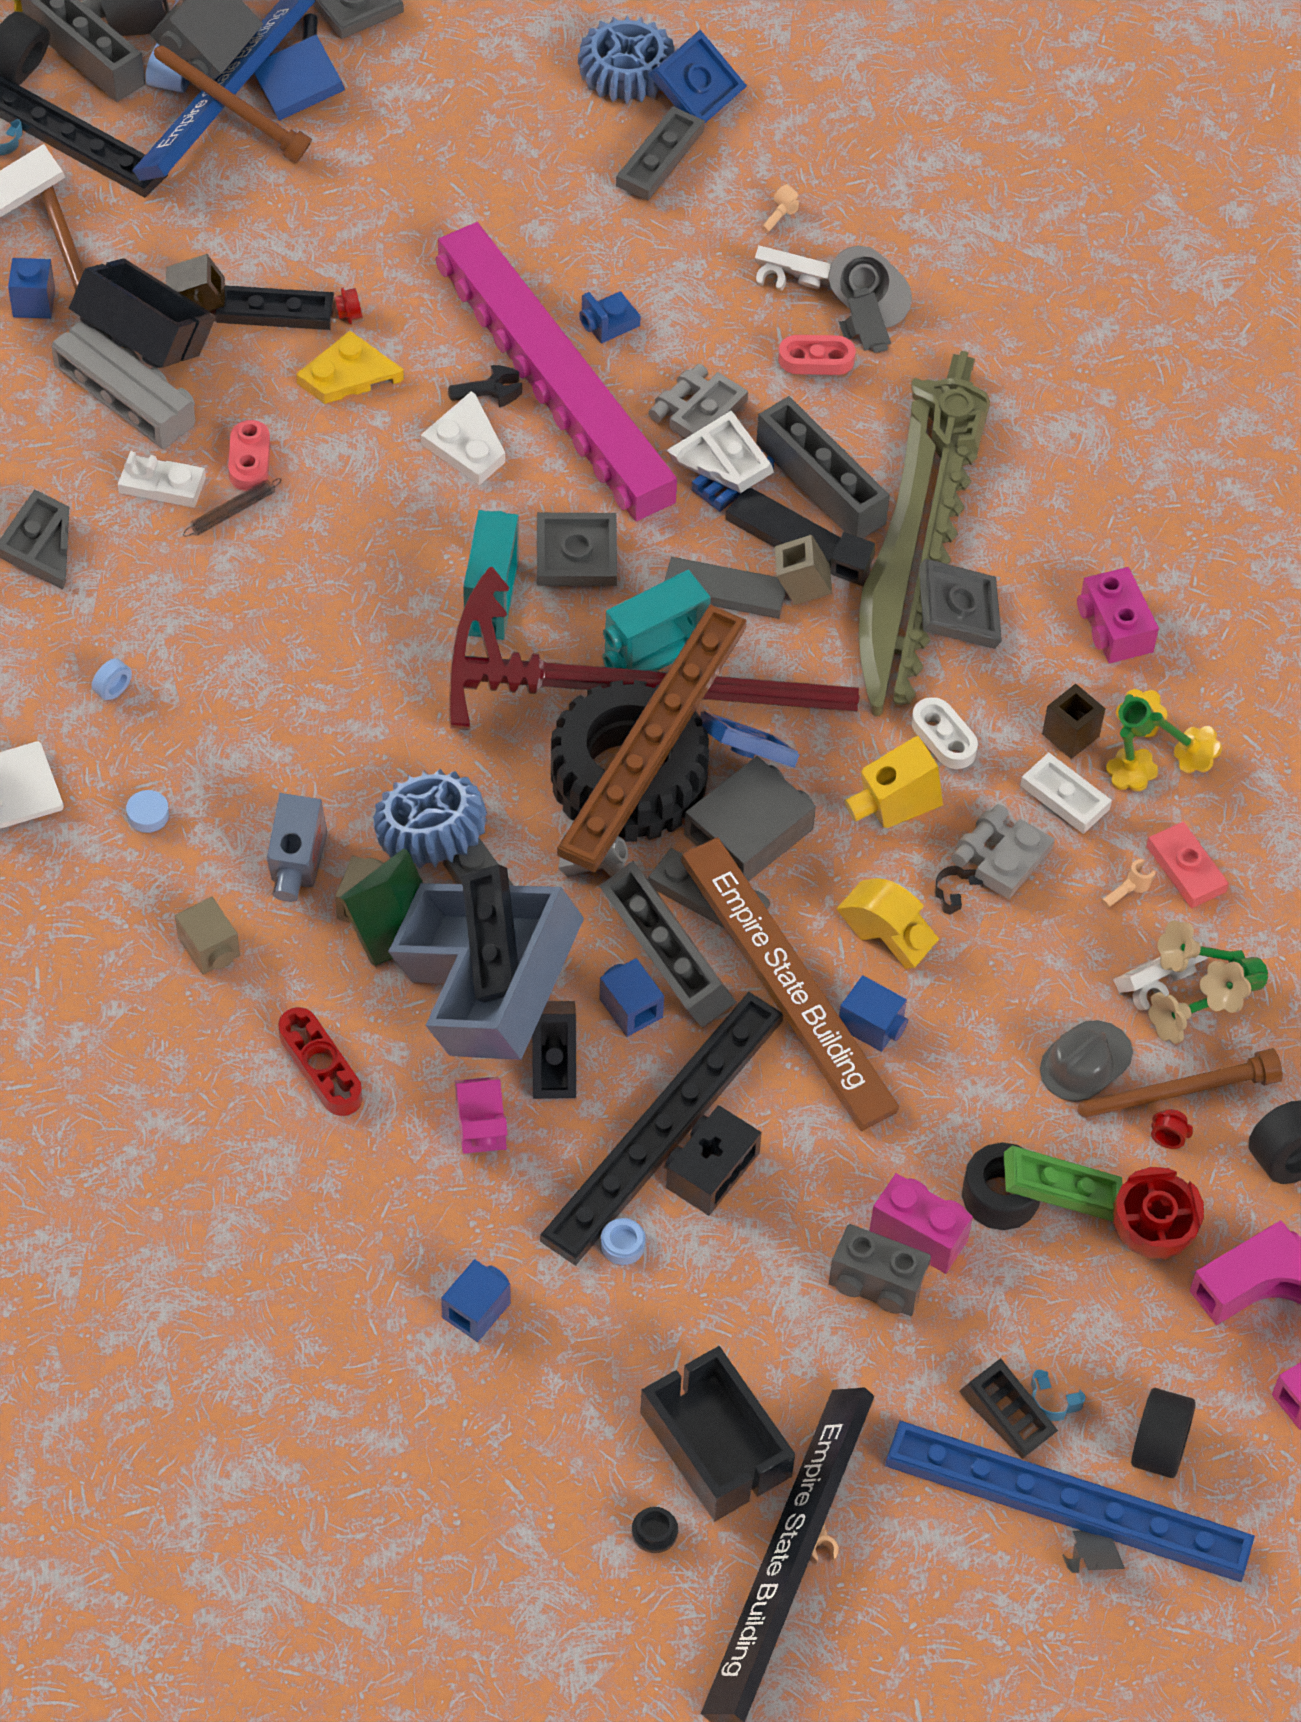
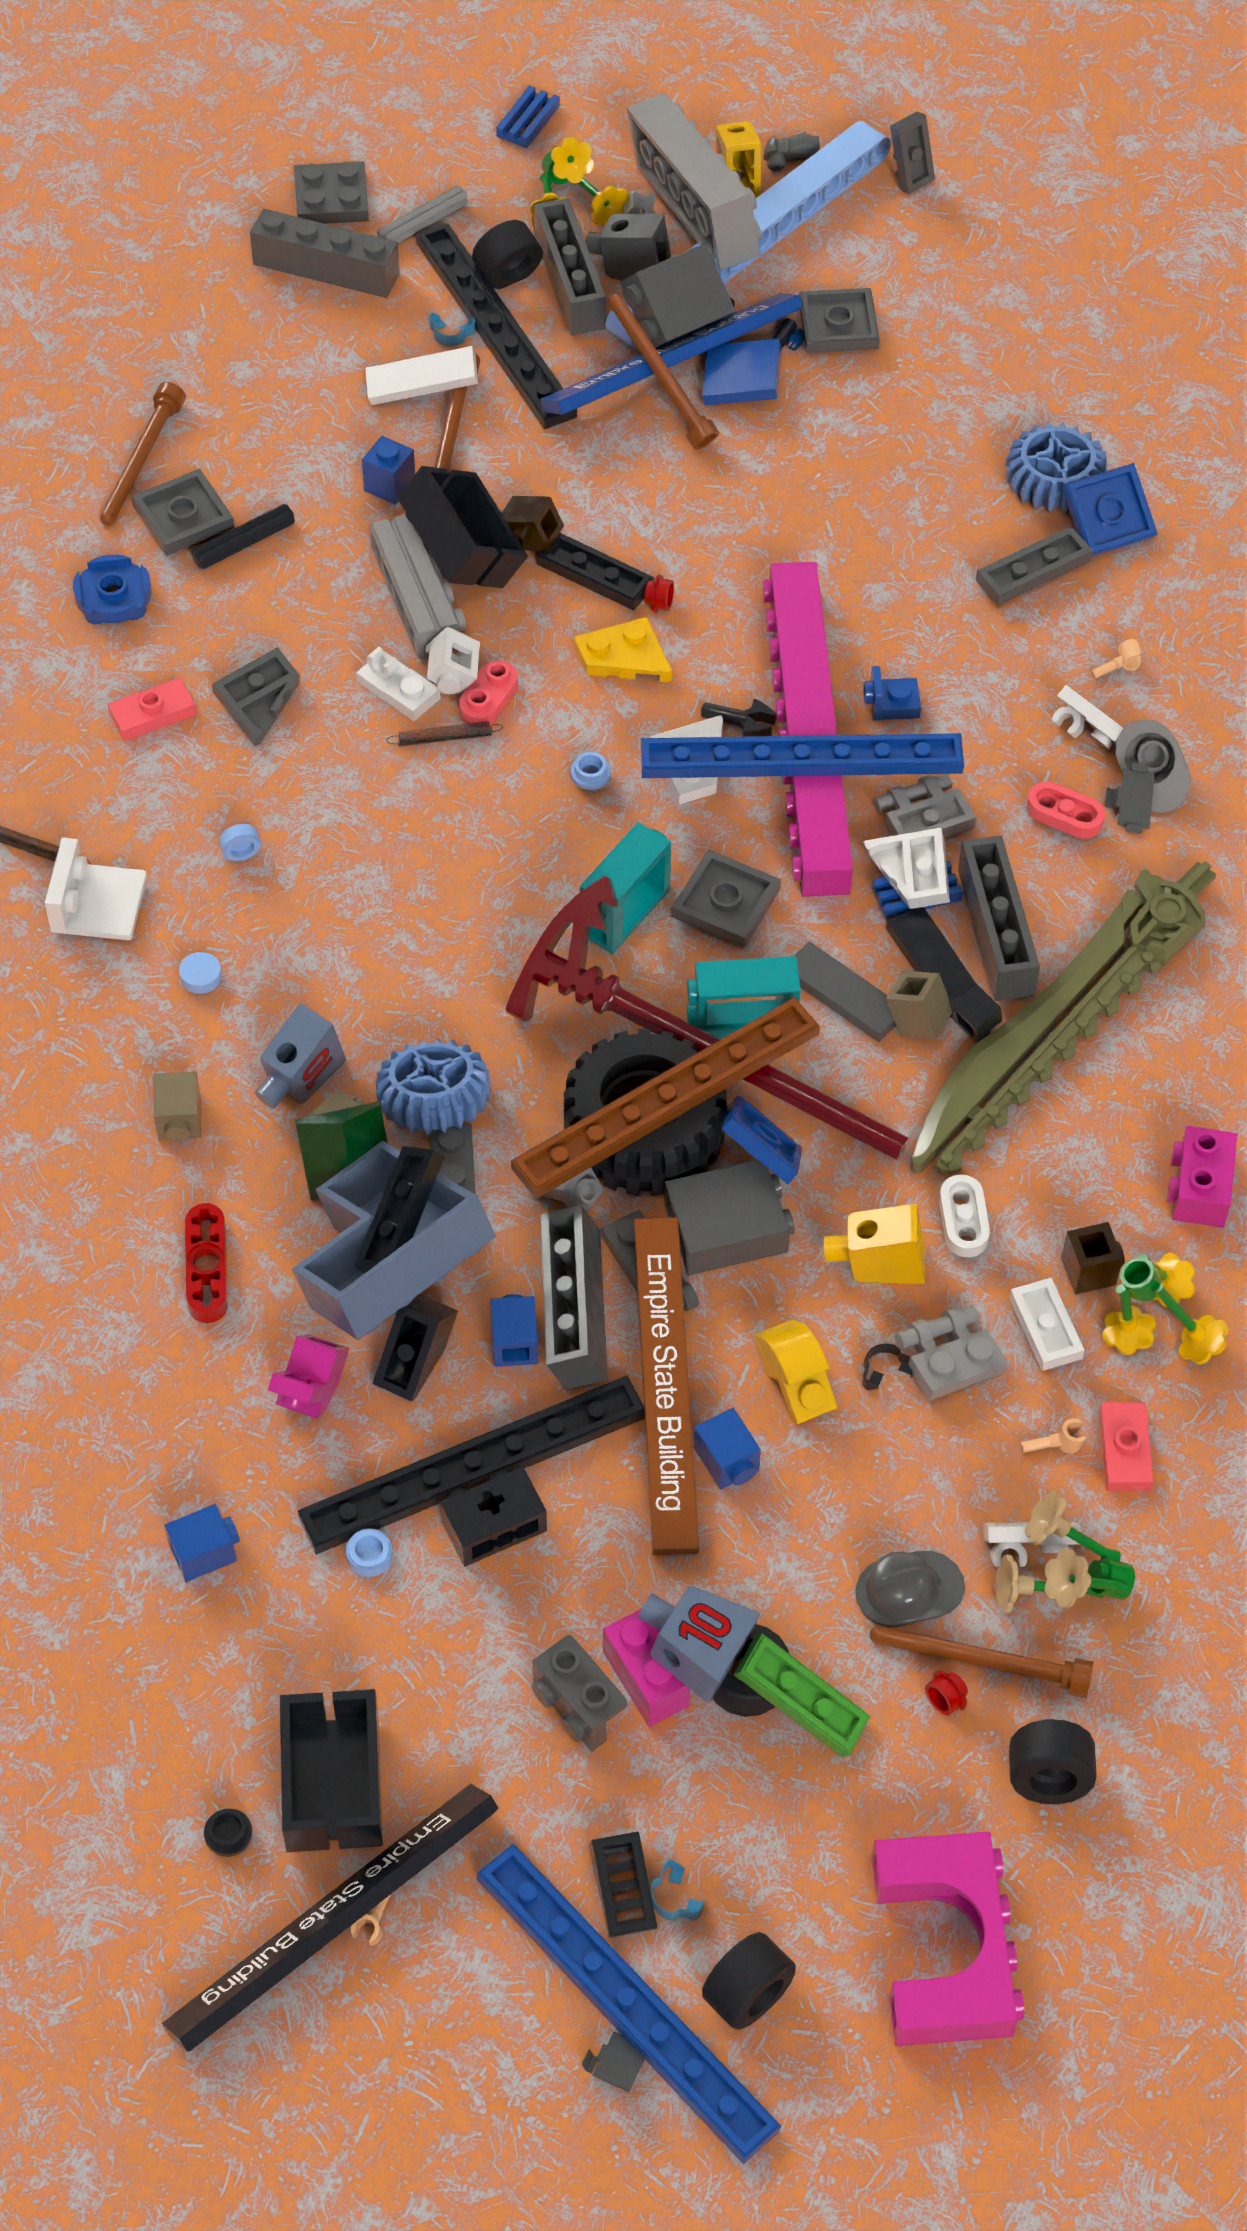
camera: 30 degrees right, 0 degrees up
(205, 437) = (450, 670): none -> white brick
(323, 30) = (795, 339): none -> clear blue piece
(386, 479) = (590, 763): none -> light blue plate
(571, 397) = (802, 755): none -> blue tile
(960, 603) = (1054, 1100): dark grey plate -> none
(964, 1173) = (698, 1637): none -> sand blue torso
(1157, 1213) = (871, 1765): red cylinder -> none

